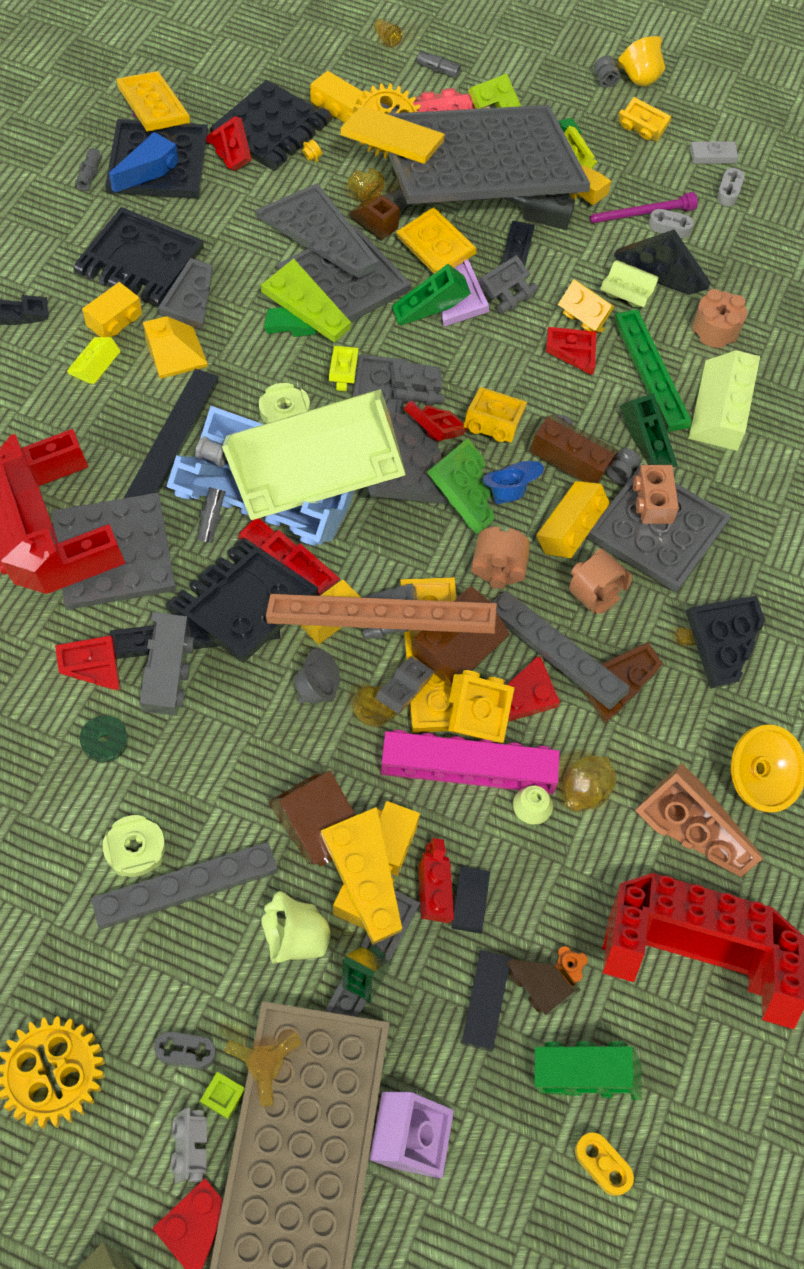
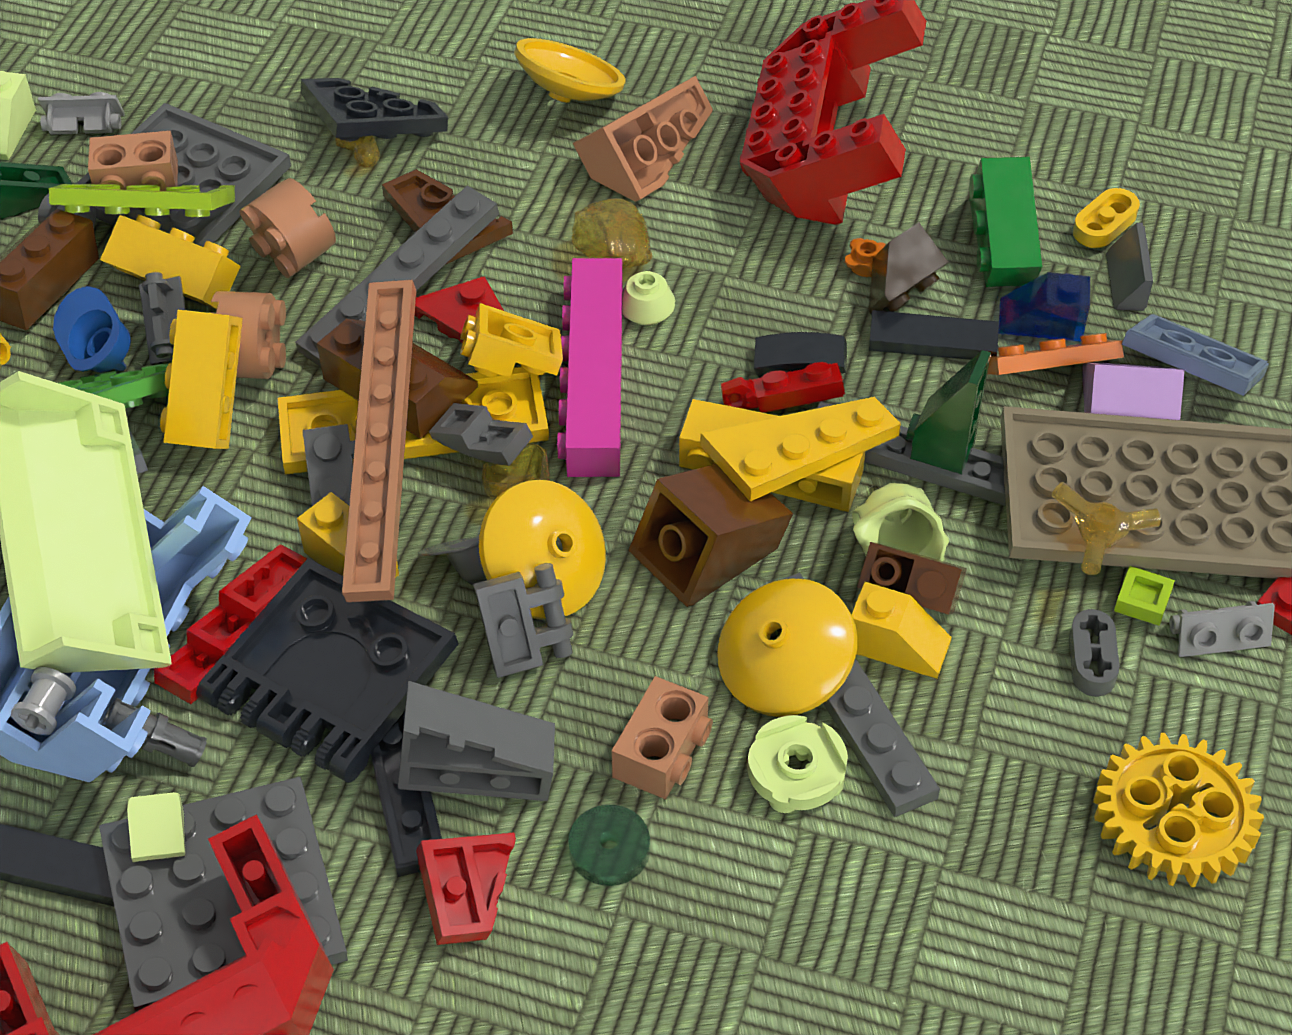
camera: 90 degrees left, 10 degrees down
(142, 513) = (156, 826): none -> yellowish green slope
(168, 765) = (653, 734): none -> nougat brick
(213, 848) = (800, 665): none -> yellow dish
(217, 921) = (898, 631): none -> yellow slope
(250, 692) = (509, 622): none -> dark grey plate
(250, 935) = (928, 580): none -> reddish brown slope
(316, 706) = (523, 533): none -> yellow dish
(439, 1195) = (1196, 354): none -> sand blue tile
(450, 1082) = (1055, 354): none -> orange plate
(456, 530) = (201, 379): none -> yellow brick
(501, 1088) = (1047, 307): none -> clear blue slope
(532, 515) = (160, 304): none -> dark grey hinge
(543, 1170) = (1130, 270): none -> dark grey slope
(618, 500) = (79, 198): none -> lime wing
(726, 480) = (63, 111): none -> light grey hinge

